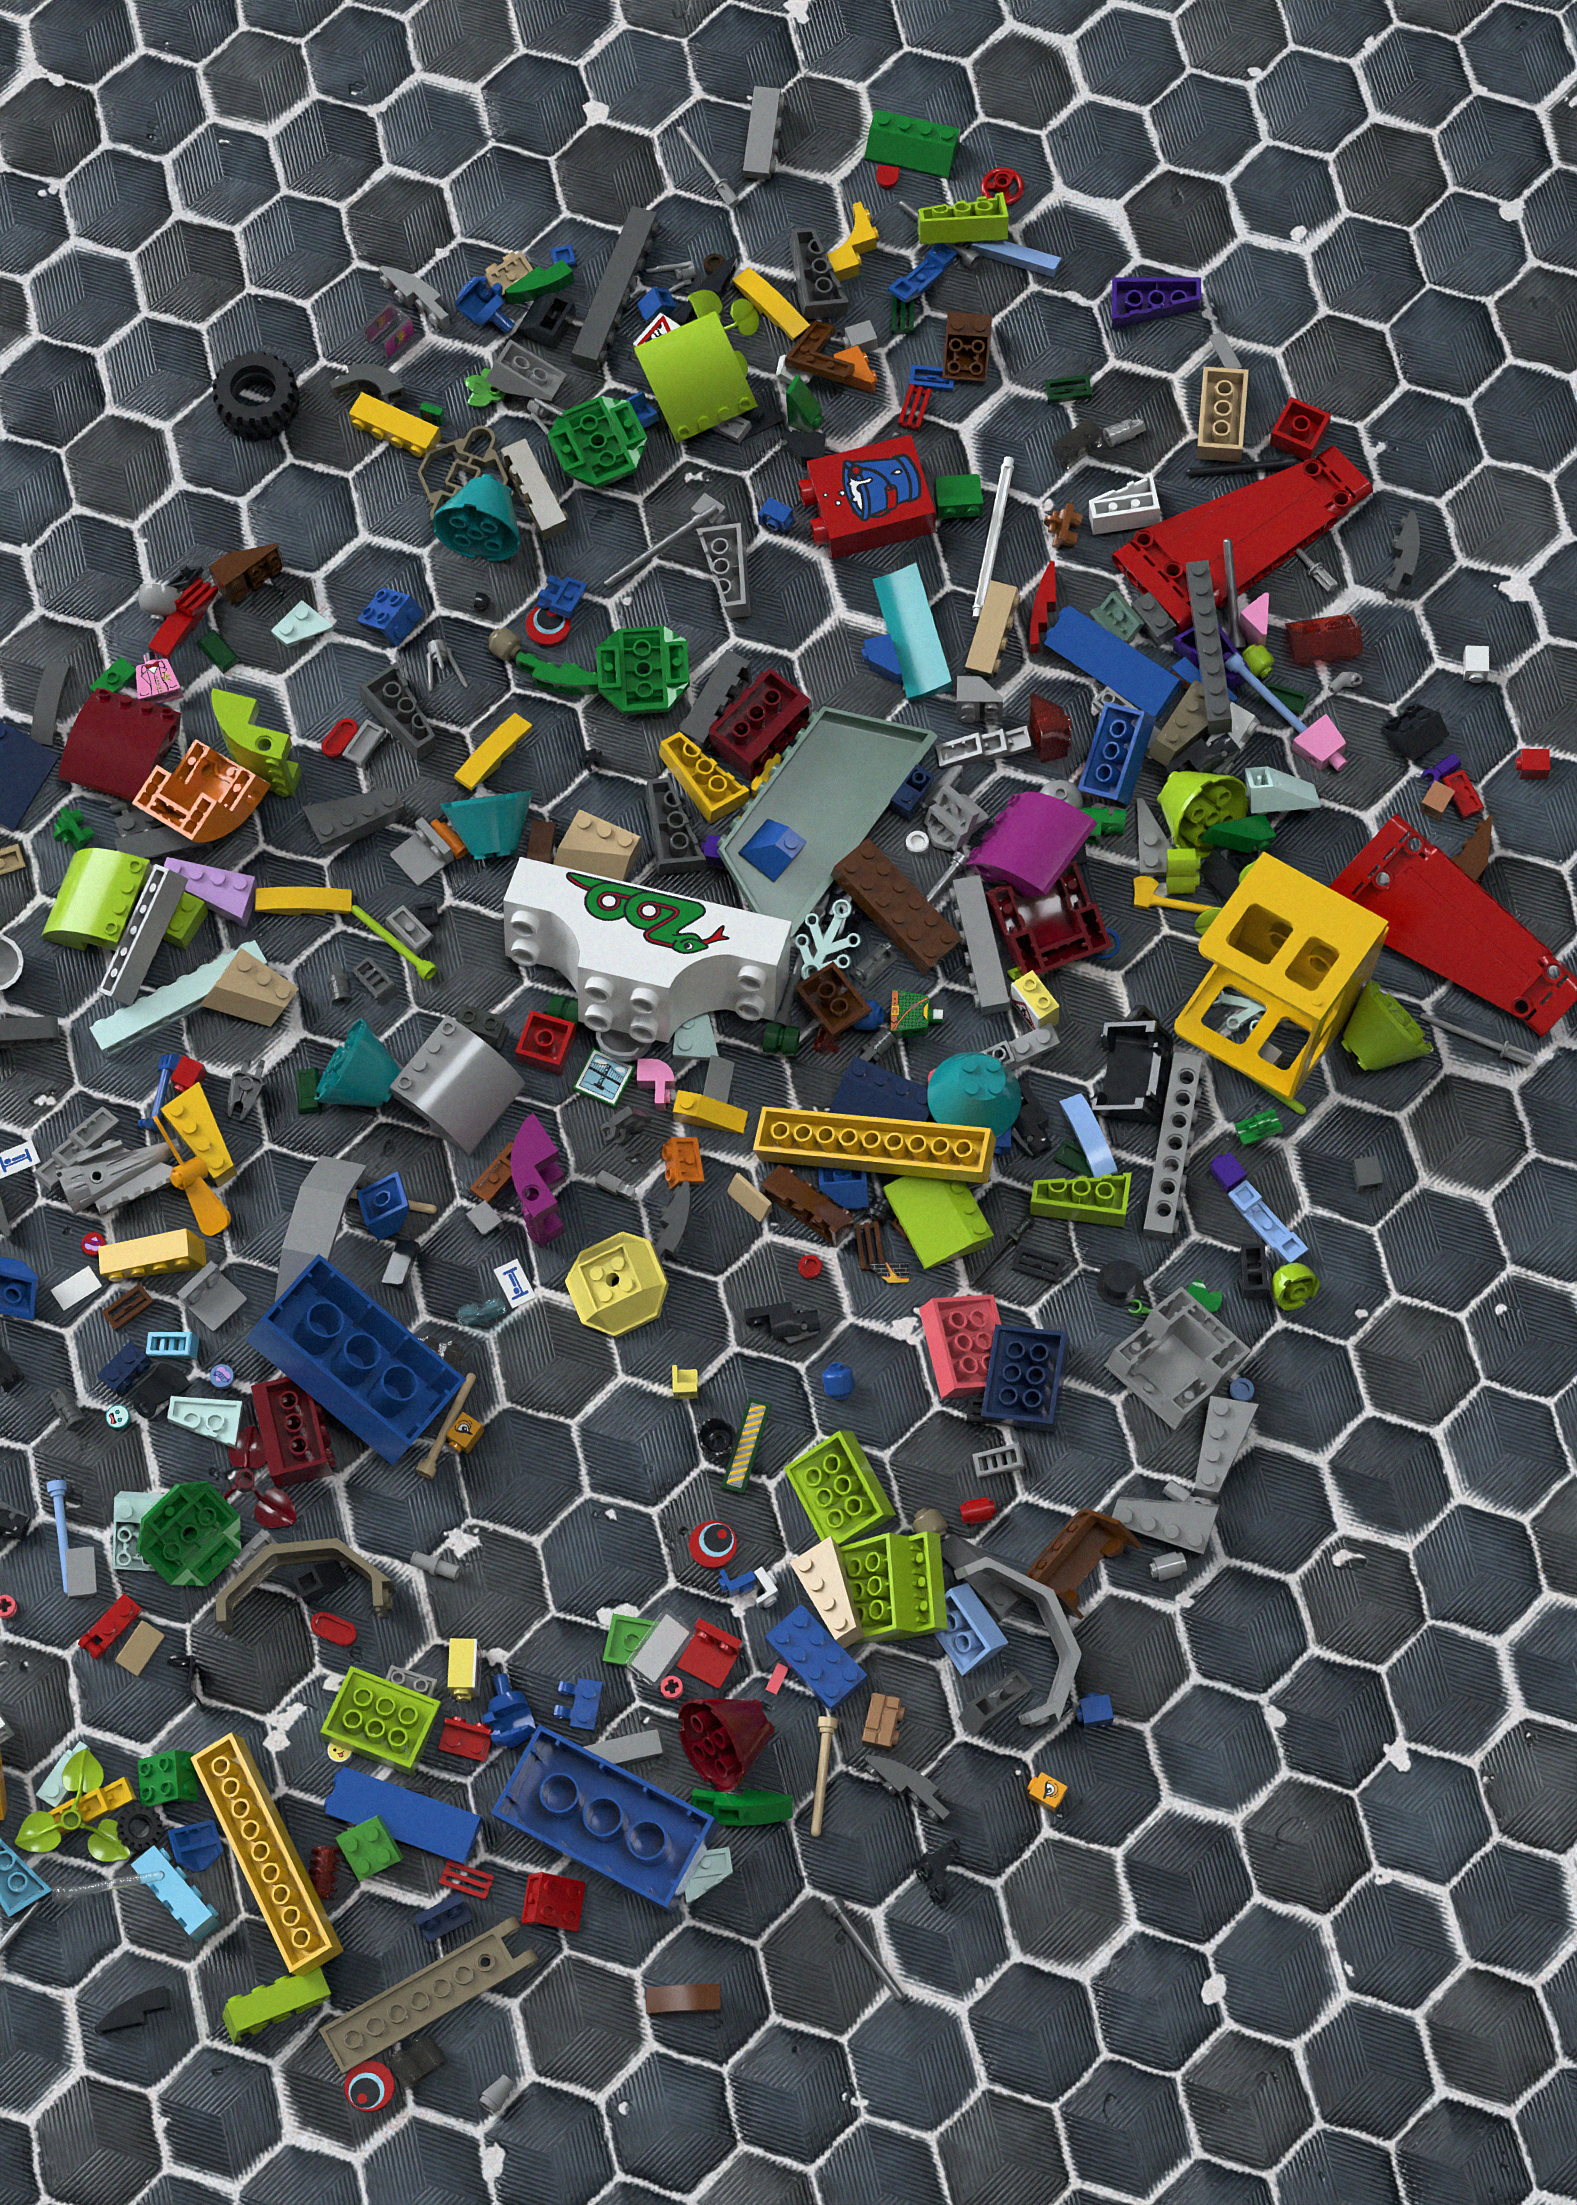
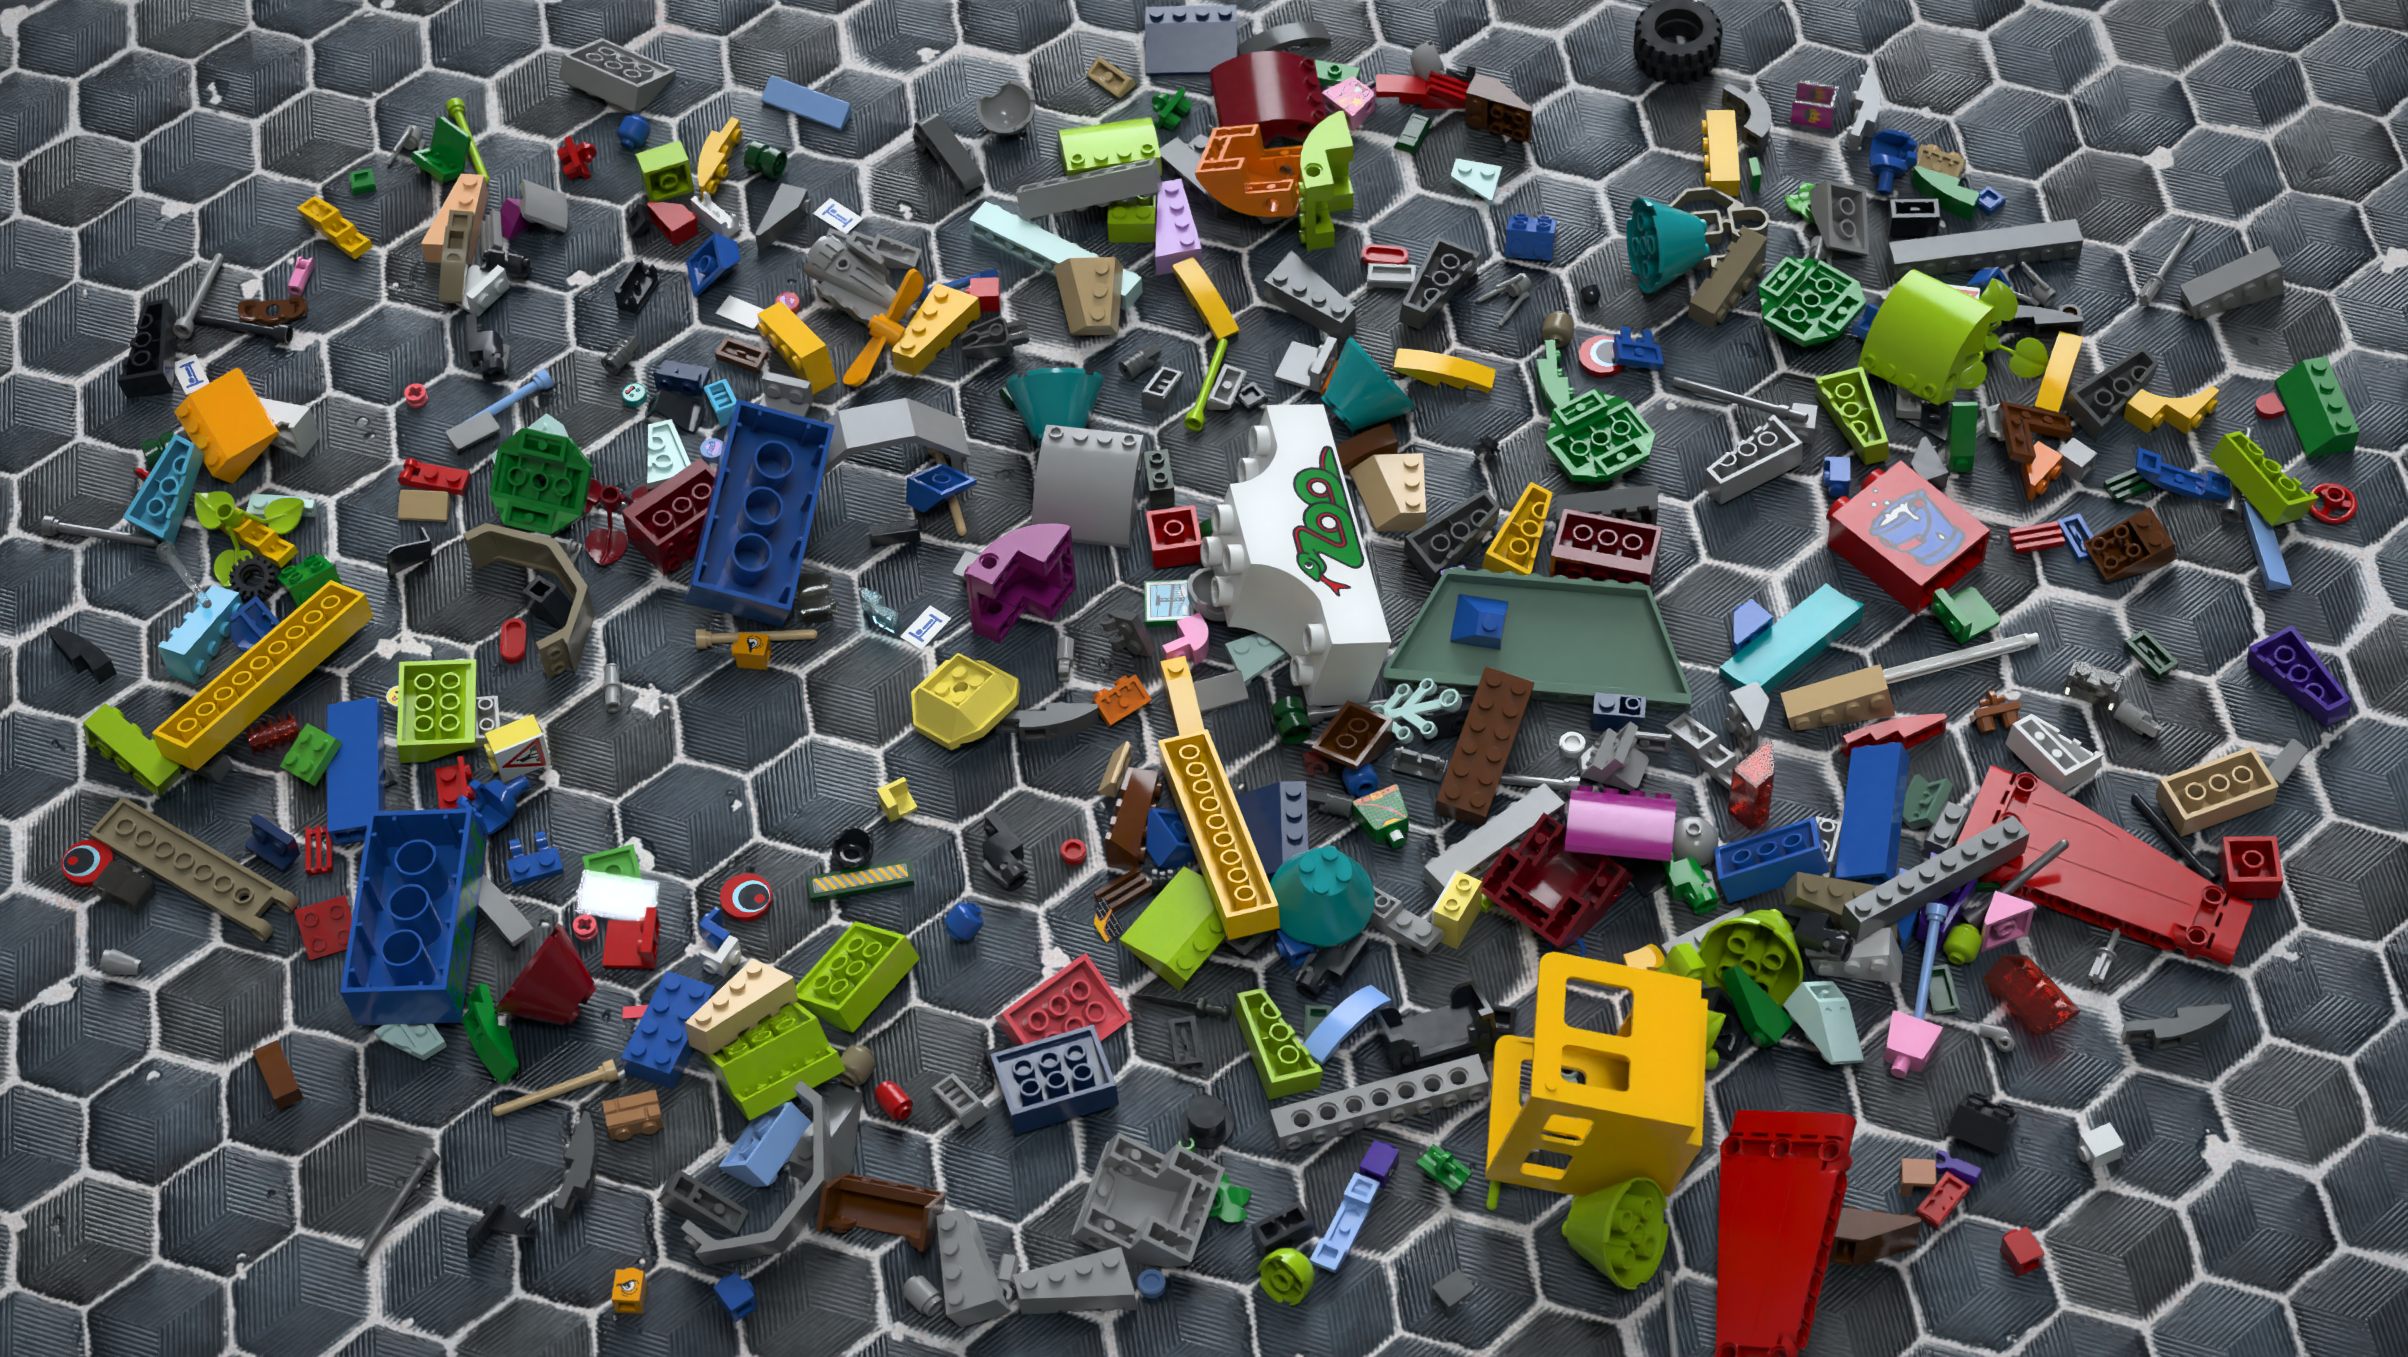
camera: 60 degrees right, 15 degrees down
(725, 469) = (1854, 411): none -> lime wedge

